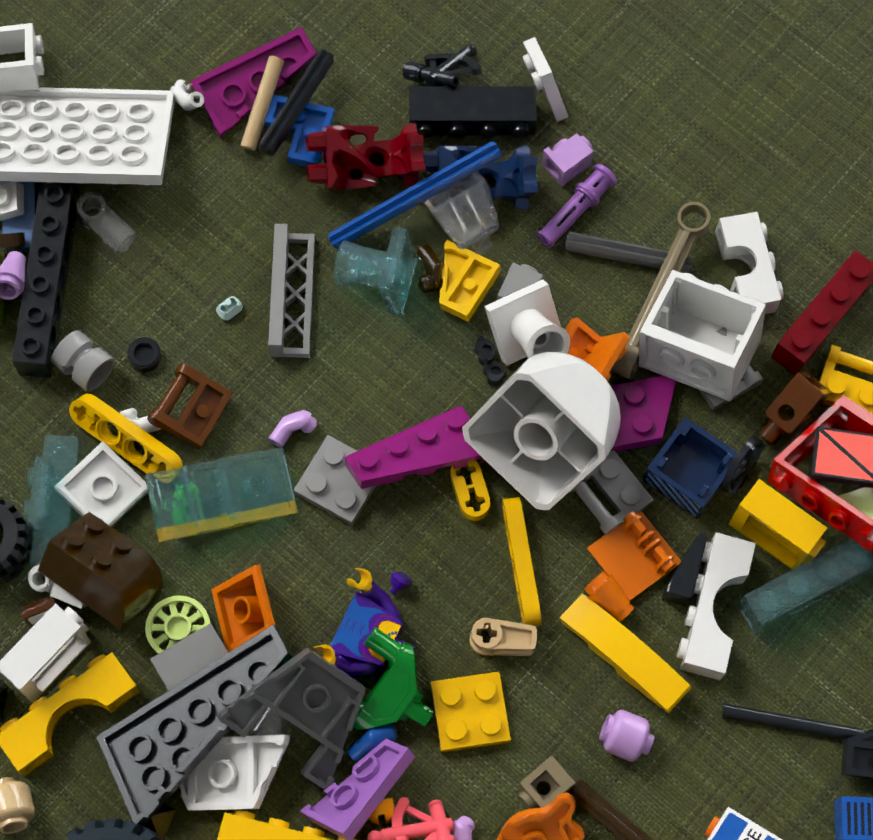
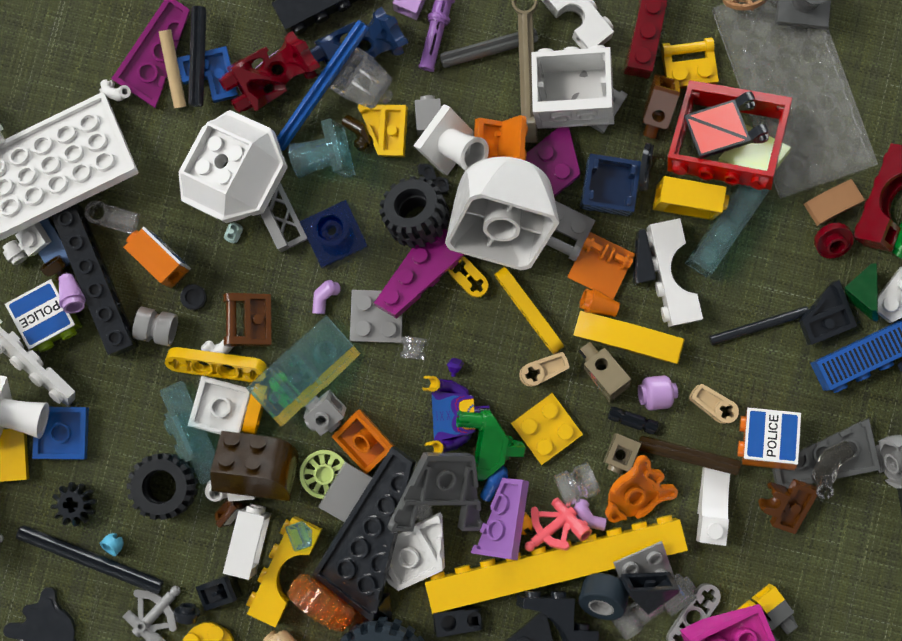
camera: 25 degrees left, 15 degrees up
(88, 770) = (320, 603): none -> clear orange gear
(109, 674) = (299, 535): none -> clear light blue slope
(129, 286) = (156, 257): none -> orange piece
(134, 516) = (252, 416): none -> light orange beam
(217, 553) = (324, 413): none -> light grey brick
(267, 232) = (247, 179): none -> white piece
(341, 363) = (334, 247): none -> clear blue plant
(362, 535) = (413, 348): none -> clear wheel
(446, 381) = (405, 197): none -> black tyre
(472, 794) = (577, 484): none -> clear wheel
(575, 678) = (610, 381): none -> dark tan torso
(580, 755) = (633, 420): none -> black axle
(686, 782) = (710, 403): none -> tan piece

